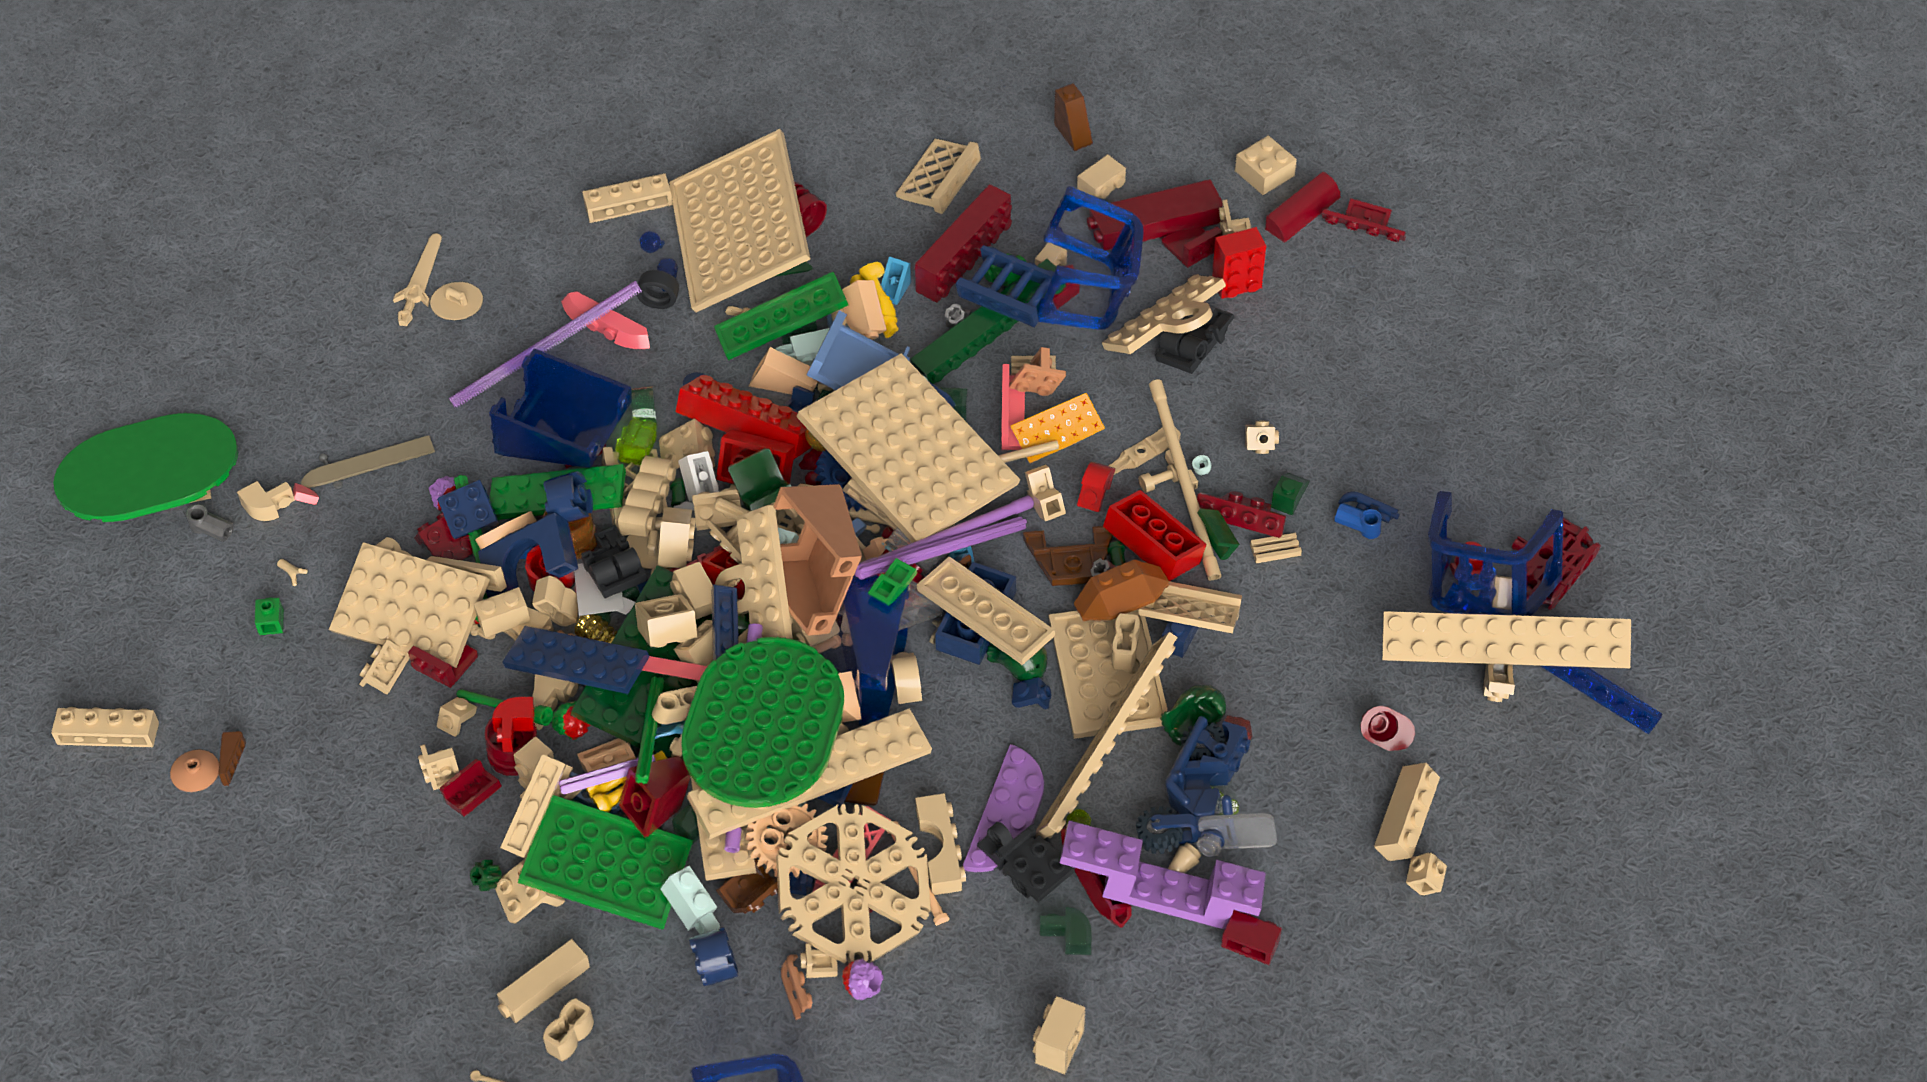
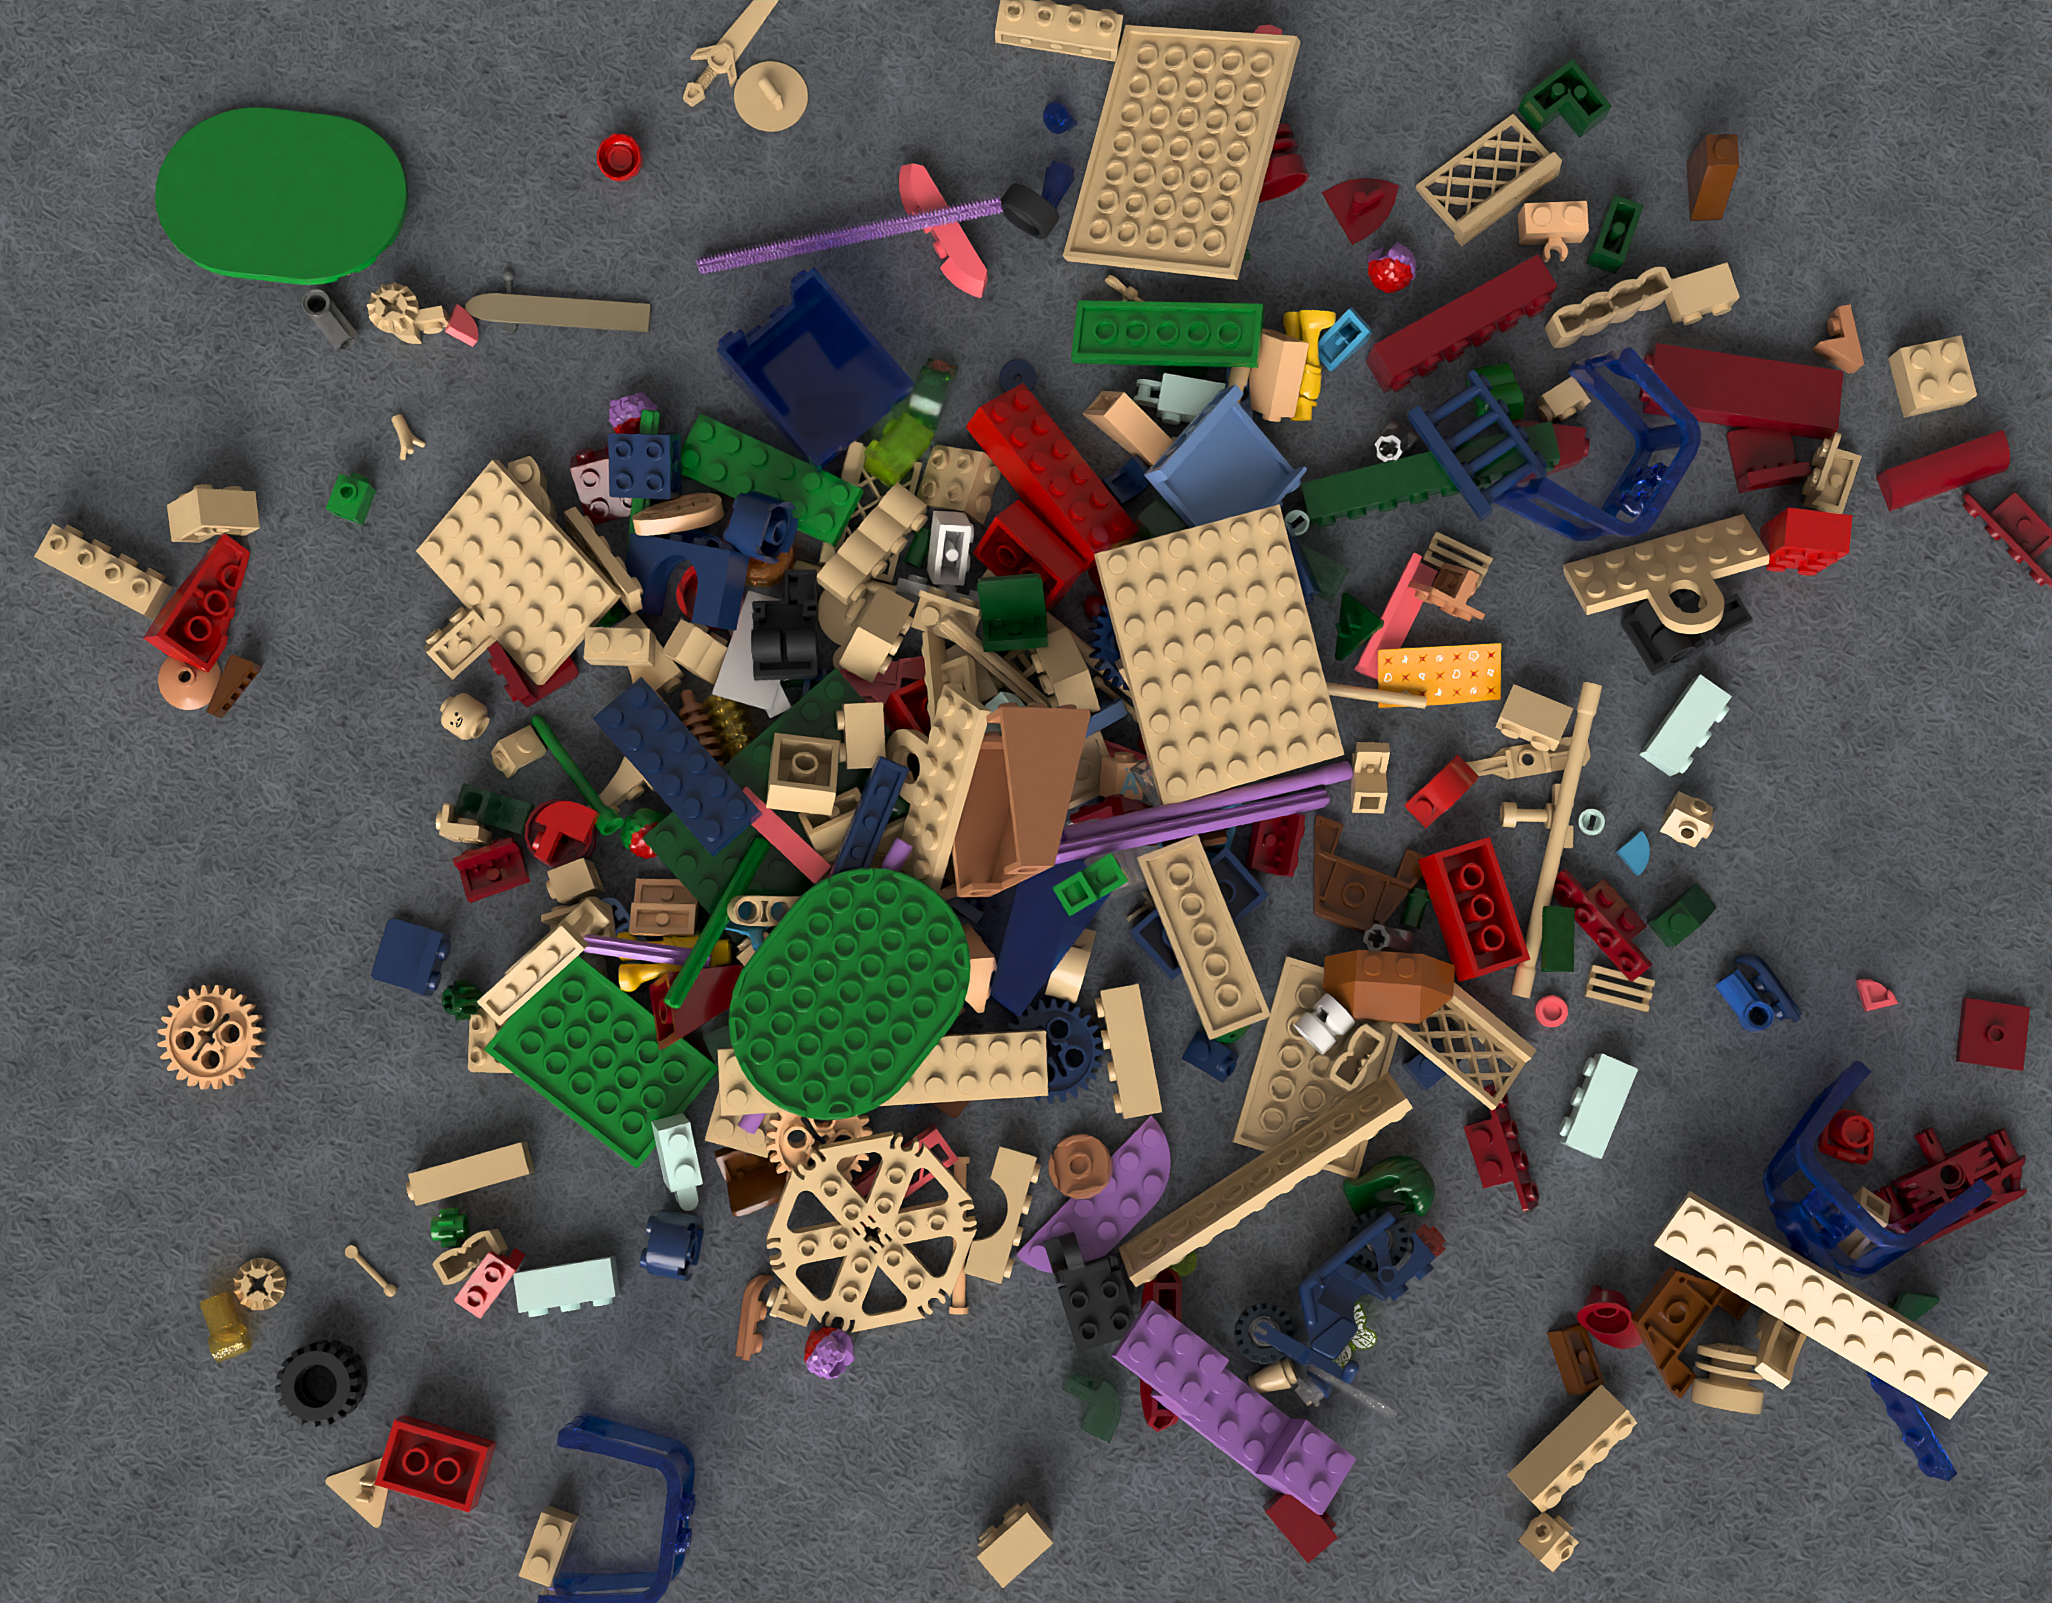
camera: 25 degrees right, 30 degrees up
(169, 657) = (212, 512): none -> tan brick
(187, 724) = (199, 613): none -> red wedge
(258, 498) = (394, 321): none -> tan gear
(286, 974) = (190, 1018): none -> light nougat gear
(371, 363) = (617, 152): none -> red hair
(408, 706) = (464, 716): none -> tan head
(436, 866) = (411, 957): none -> dark blue bracket
(464, 749) = (493, 809): none -> clear green brick
(541, 1019) = (449, 1227): none -> green gear
(589, 1034) = (488, 1281): none -> bracket
(648, 1021) = (567, 1286): none -> light aqua brick
(867, 217) = (1361, 205): none -> dark red shield
(905, 234) = (1392, 270): none -> red piece
(933, 720) = (1077, 1036): none -> dark blue gear
(963, 114) = (1566, 94): none -> dark green brick
(974, 710) = (1130, 1051): none -> tan brick
(978, 792) = (1080, 1166): none -> nougat tile
(988, 420) = (1355, 626): none -> dark green piece
(995, 172) = (1553, 225): none -> light nougat brick
(1005, 554) = (1276, 845): none -> dark red bracket
(1031, 168) = (1614, 234): none -> dark green brick
(1043, 206) = (1609, 307): none -> tan brick
(1094, 633) = (1324, 1023): none -> white wheel
(1131, 423) = (1534, 718): none -> tan brick
(1201, 168) = (1845, 347): none -> nougat slope
(1229, 392) = (1686, 726): none -> light aqua brick
(1239, 578) = (1551, 1011): none -> coral tile
(1240, 472) = (1635, 853): none -> dark azure tile
(1251, 668) = (1499, 1154): none -> dark red bracket
(1300, 613) = (1597, 1105): none -> light aqua brick
(1377, 765) = (1575, 1358): none -> reddish brown slope
(1423, 706) = (1673, 1316): none -> reddish brown wing
(1437, 485) = (1874, 995): none -> coral tile
(1482, 723) = (1728, 1379): none -> tan wheel
(1524, 476) = (1992, 1034): none -> dark red plate

